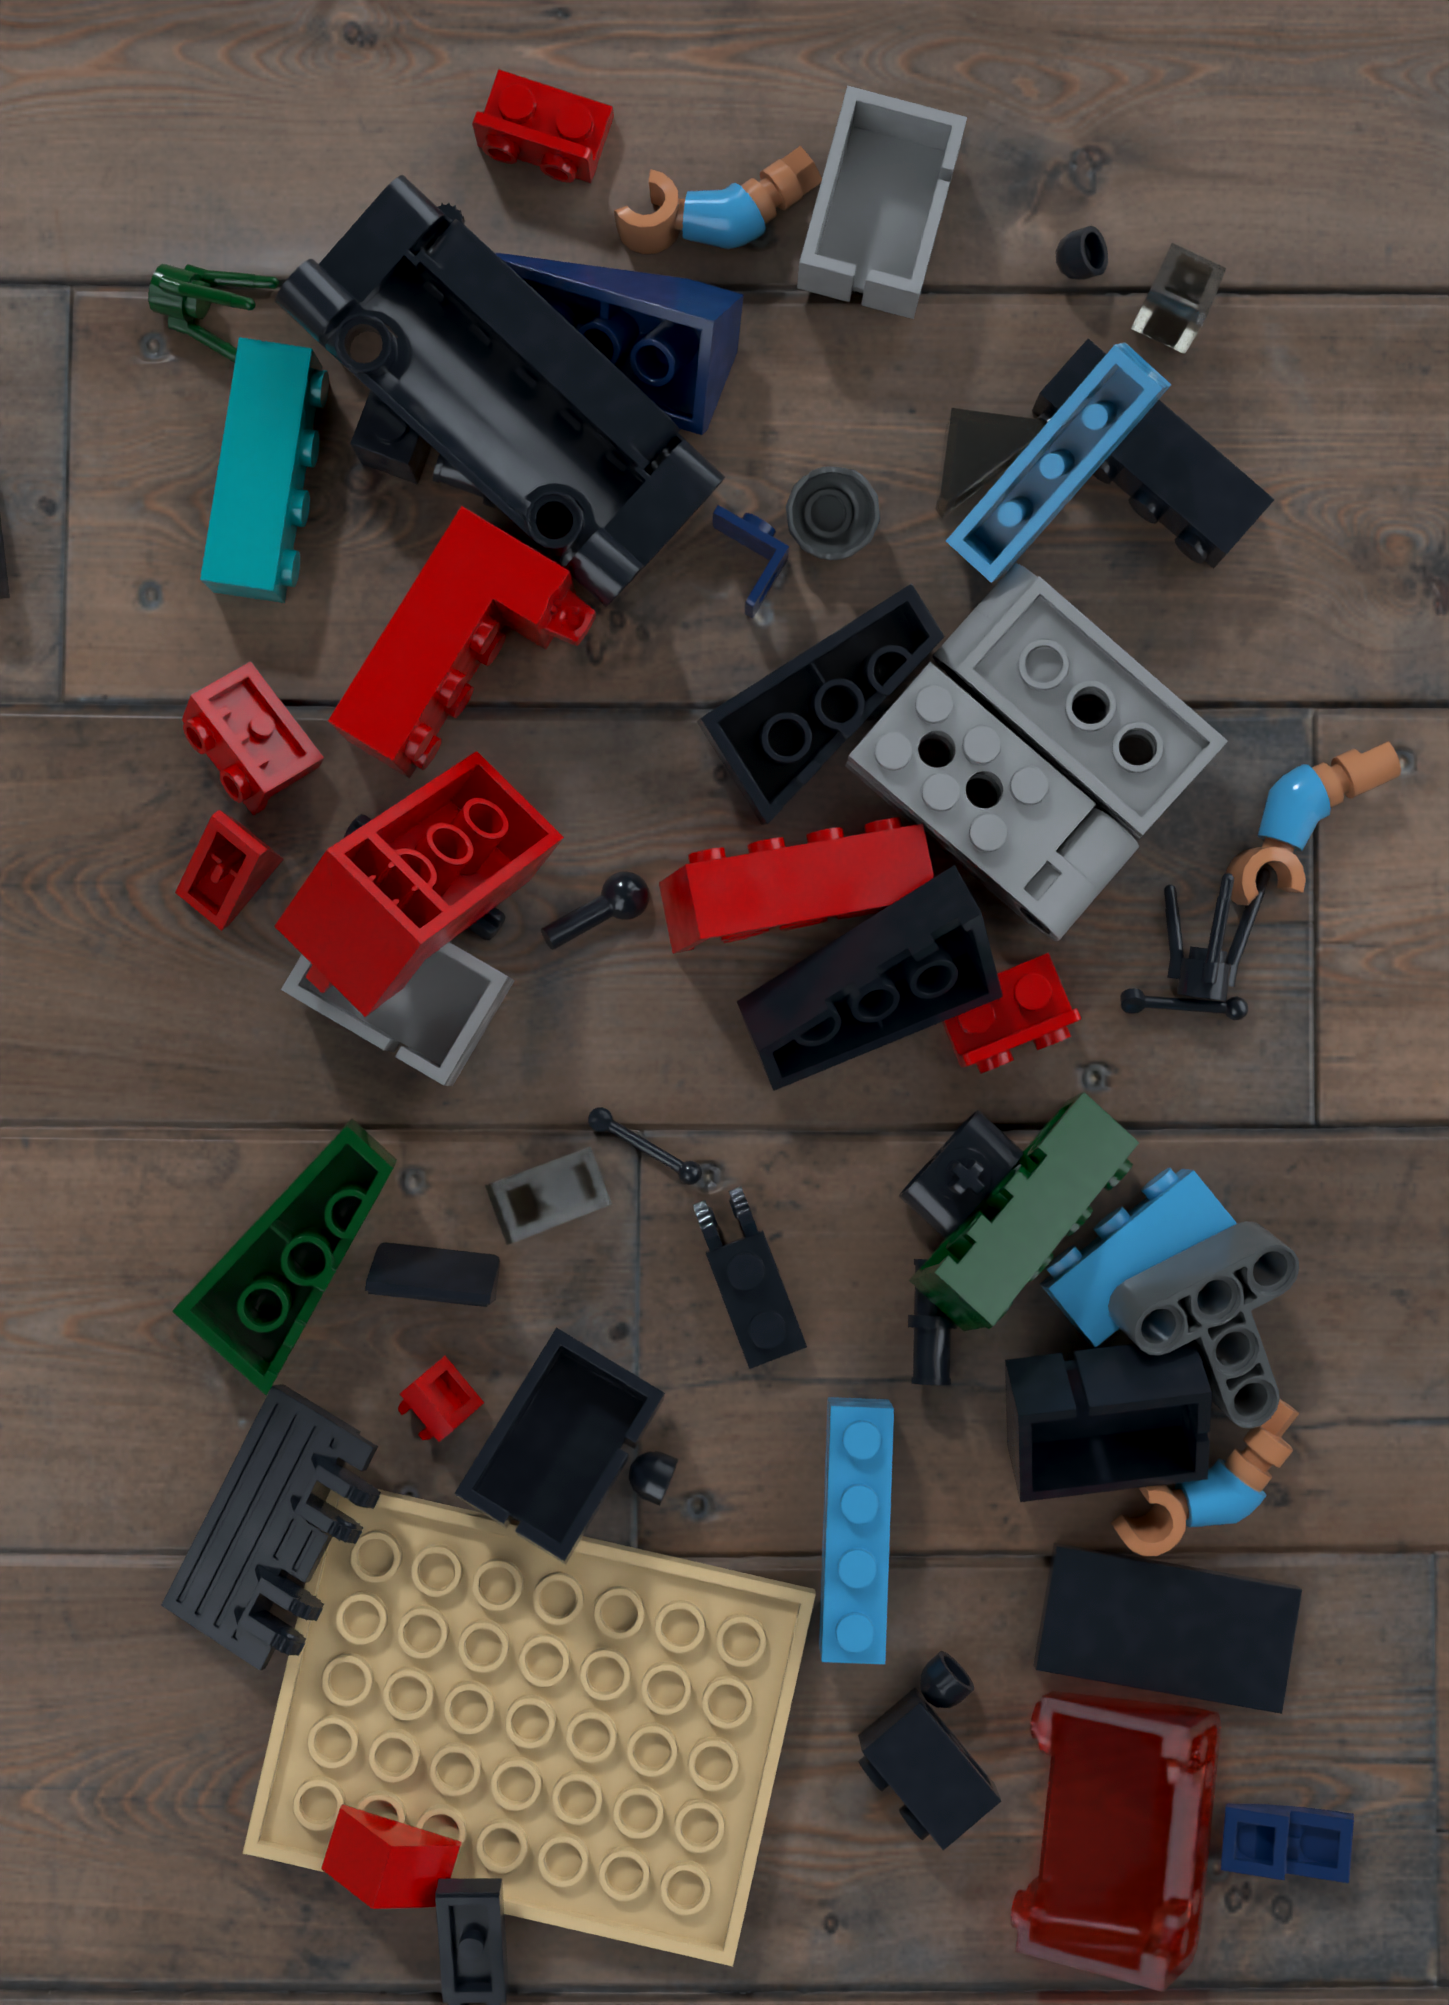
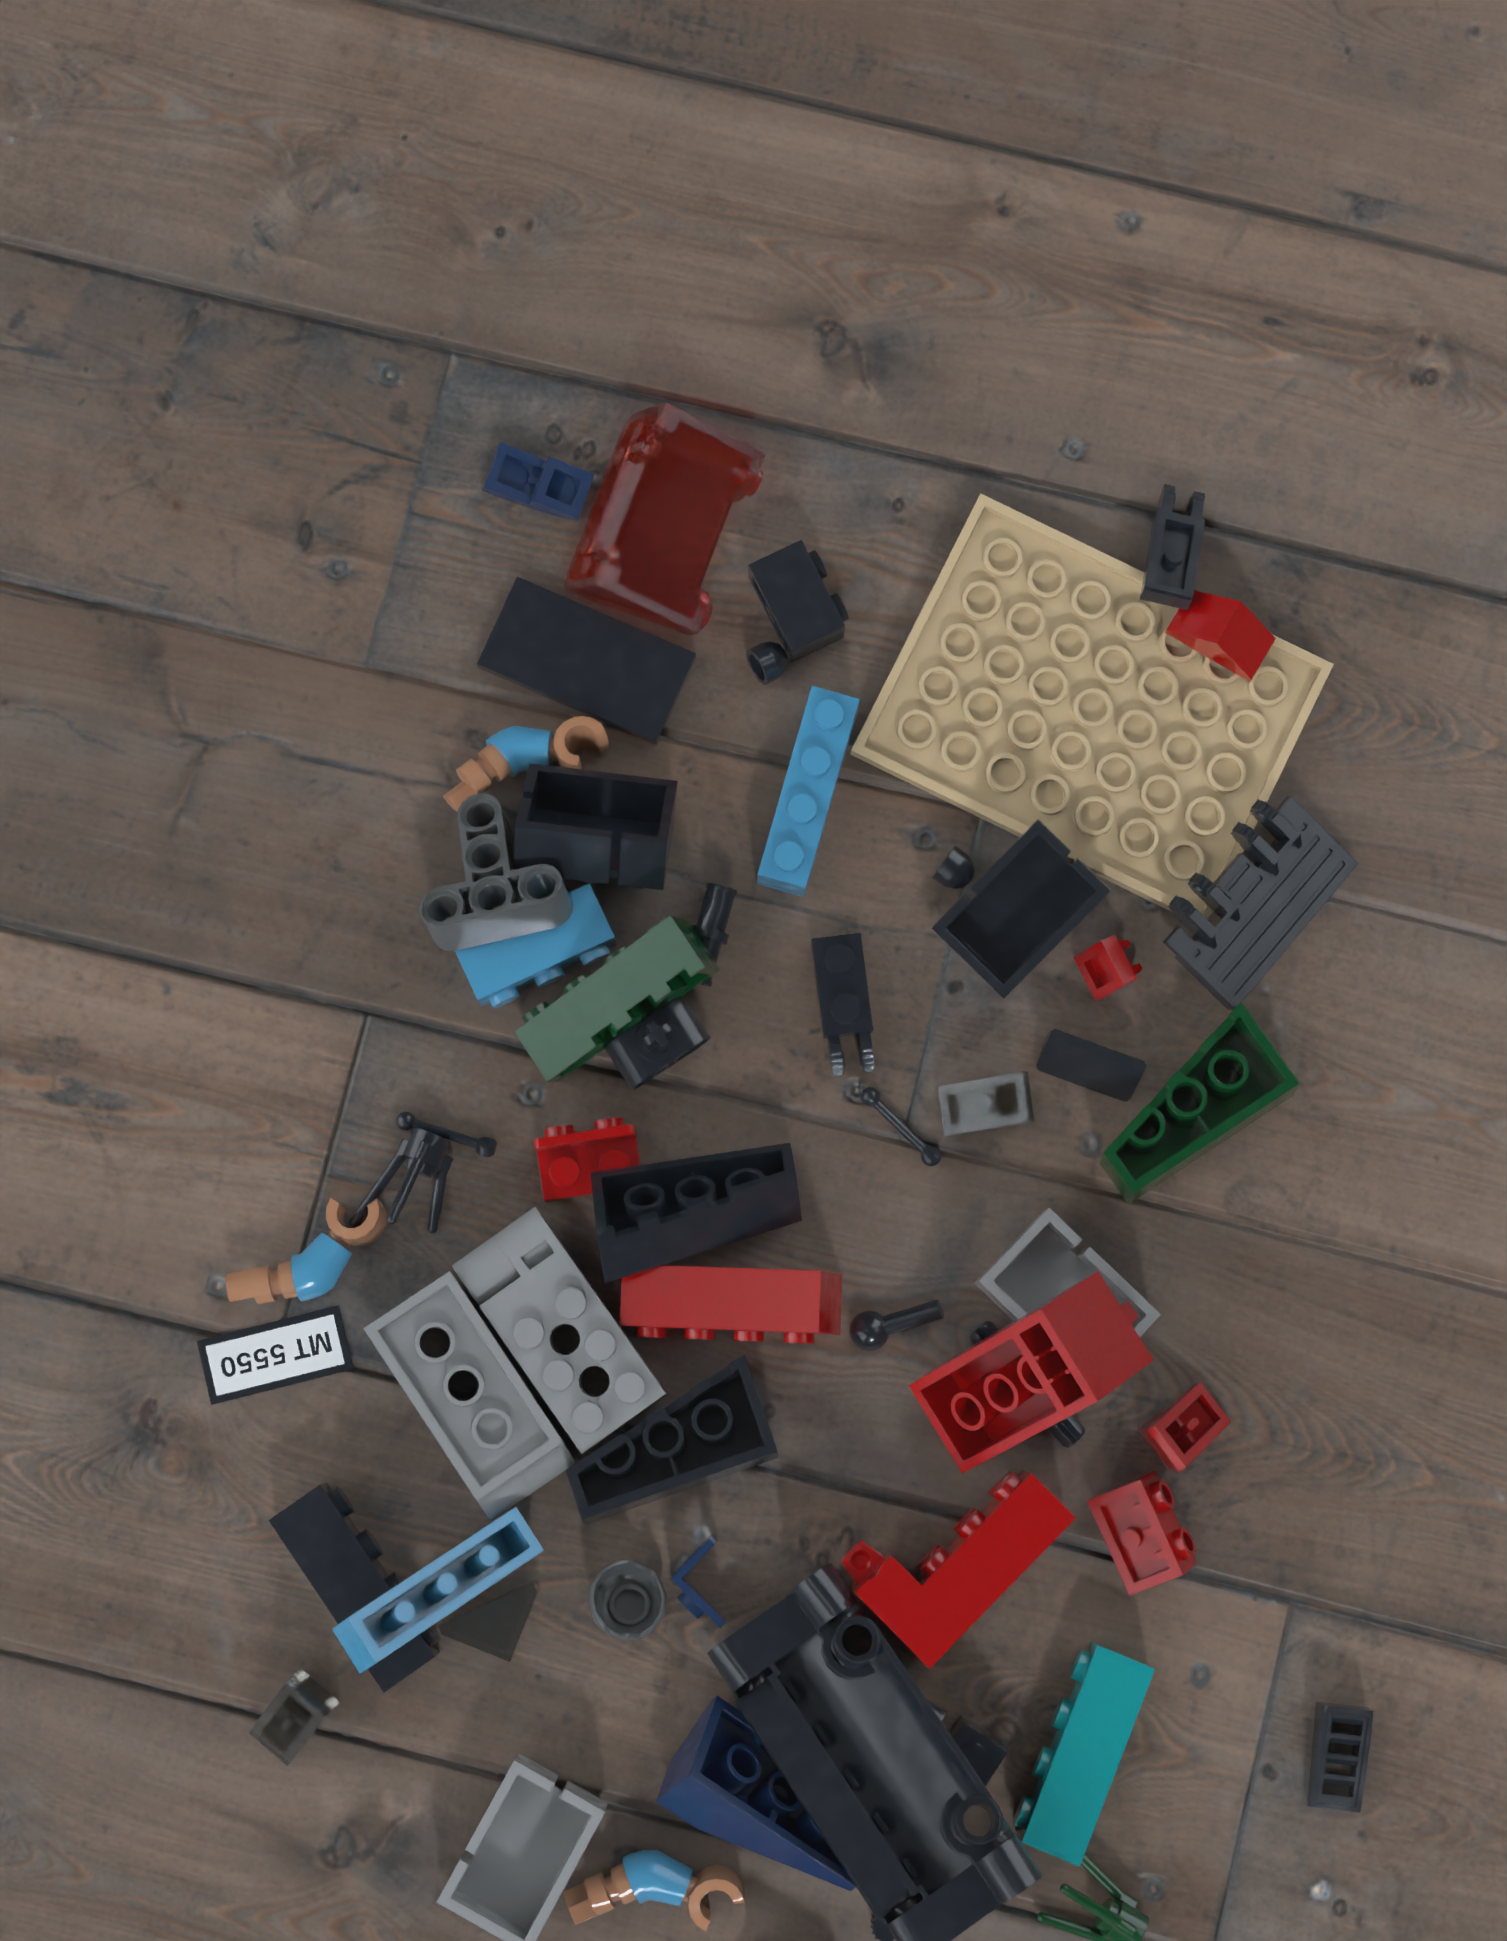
camera: 170 degrees left, 5 degrees down
(1082, 254) = (365, 1771): black hinge -> none
(1313, 699) = (275, 1355): none -> sticker

